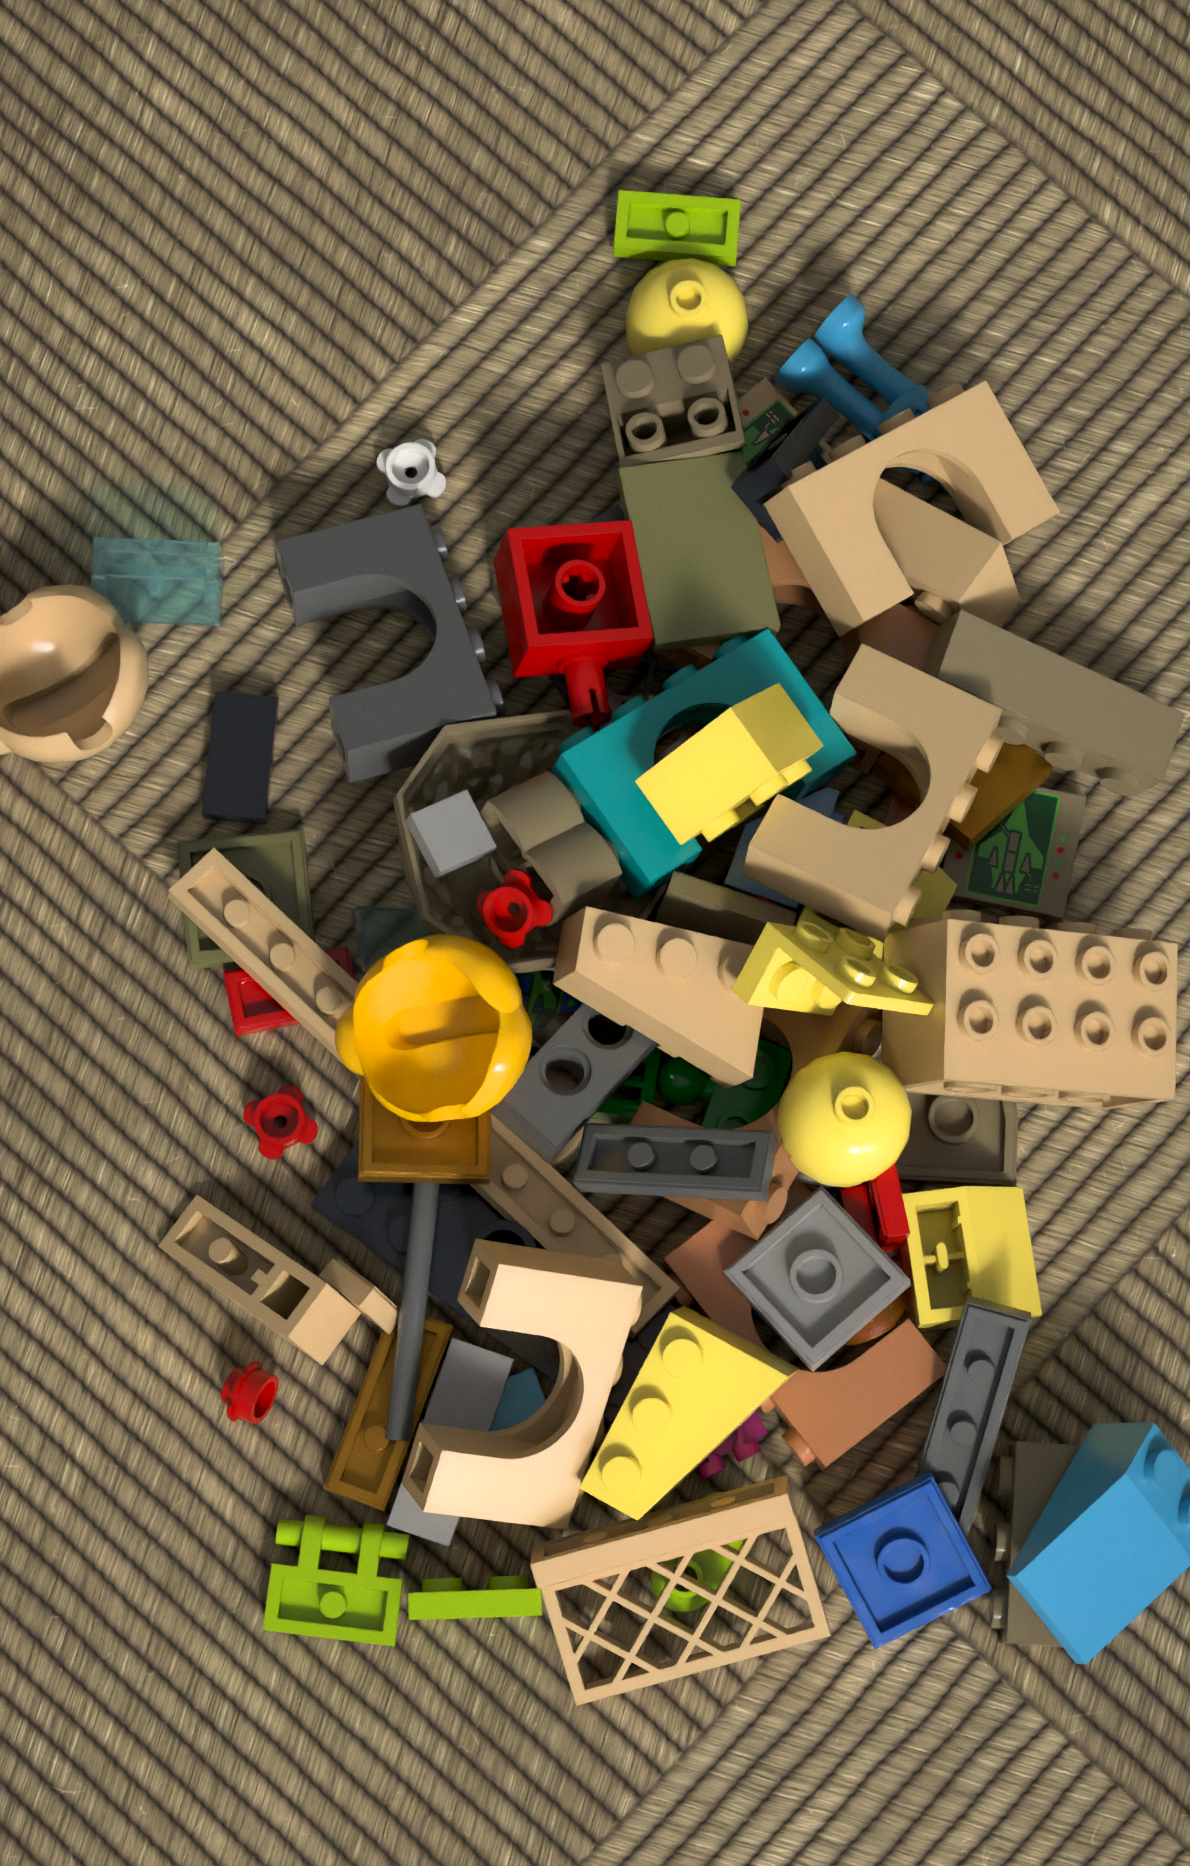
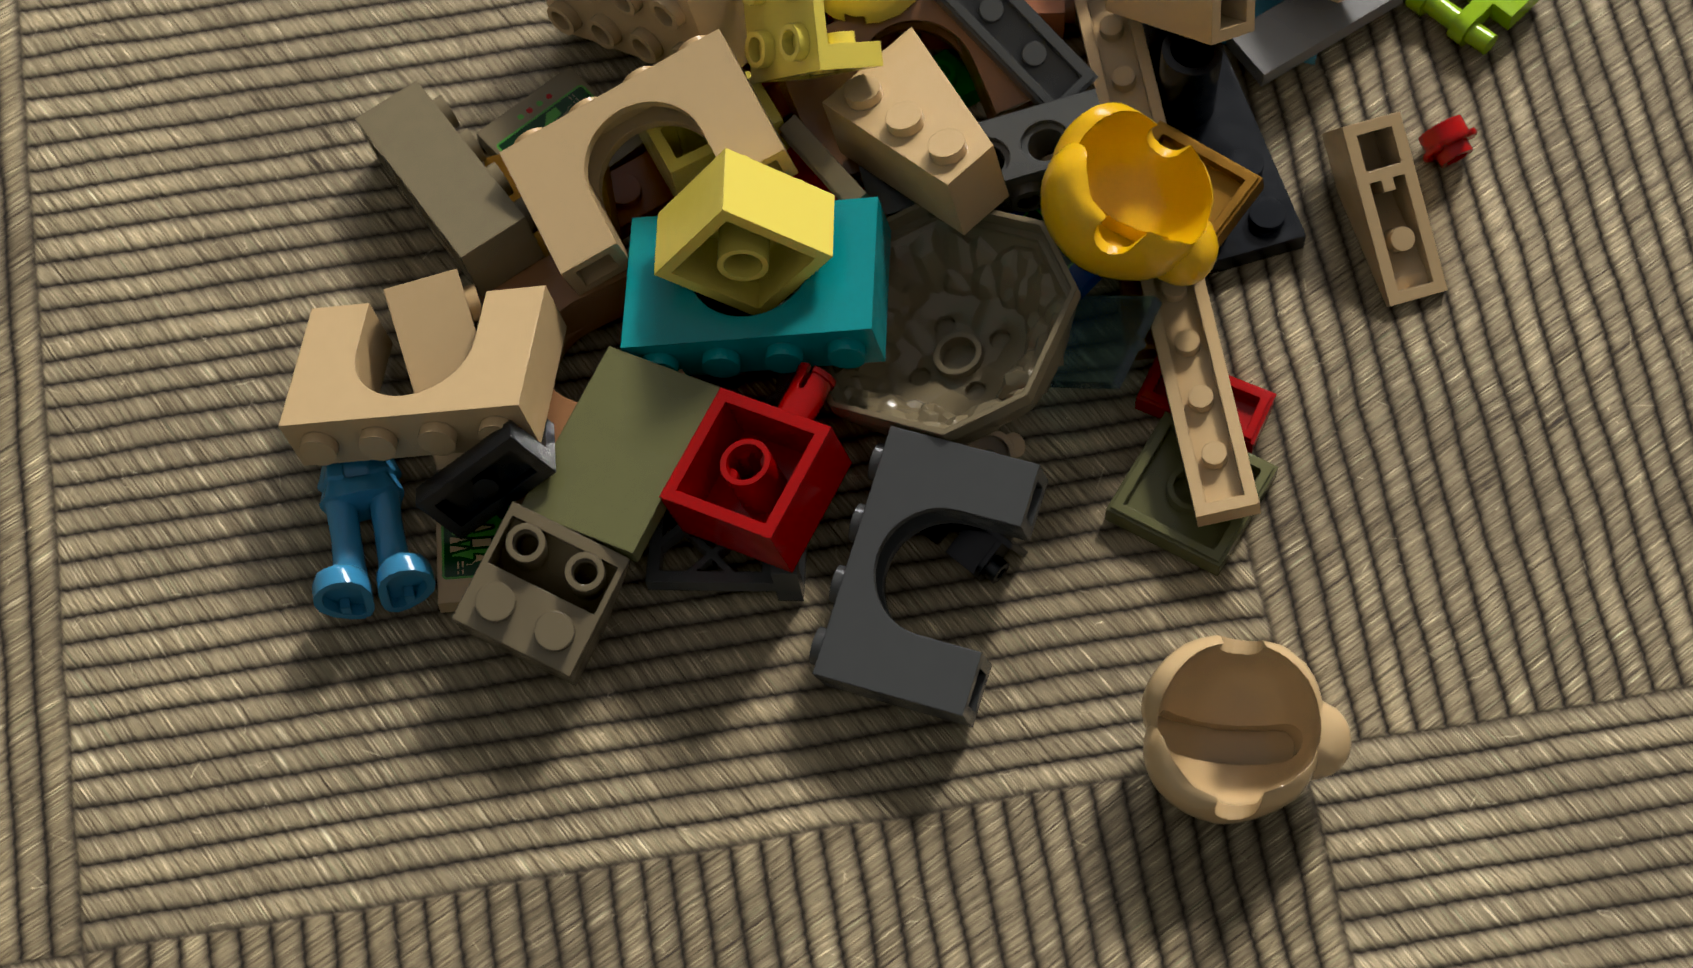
camera: 140 degrees left, 15 degrees down
(160, 580) = (1079, 788): clear light blue hinge -> none
(240, 757) = (1115, 602): black tile -> none
(264, 1113) = (1290, 296): red plate -> none
(361, 1294) = (1314, 139): tan tile -> none
(366, 1461) = (1344, 76): pearl gold tile -> none
(409, 455) = (794, 716): white plate -> none
(412, 1312) = (1292, 94): dark grey bar -> none
(451, 833) = (1006, 333): light grey tile -> none
(496, 908) = (1001, 244): red plate -> none
(545, 834) = (933, 285): dark tan brick -> none
(676, 227) = (401, 778): lime plate -> none
(686, 304) = (460, 697): light yellow cylinder -> none

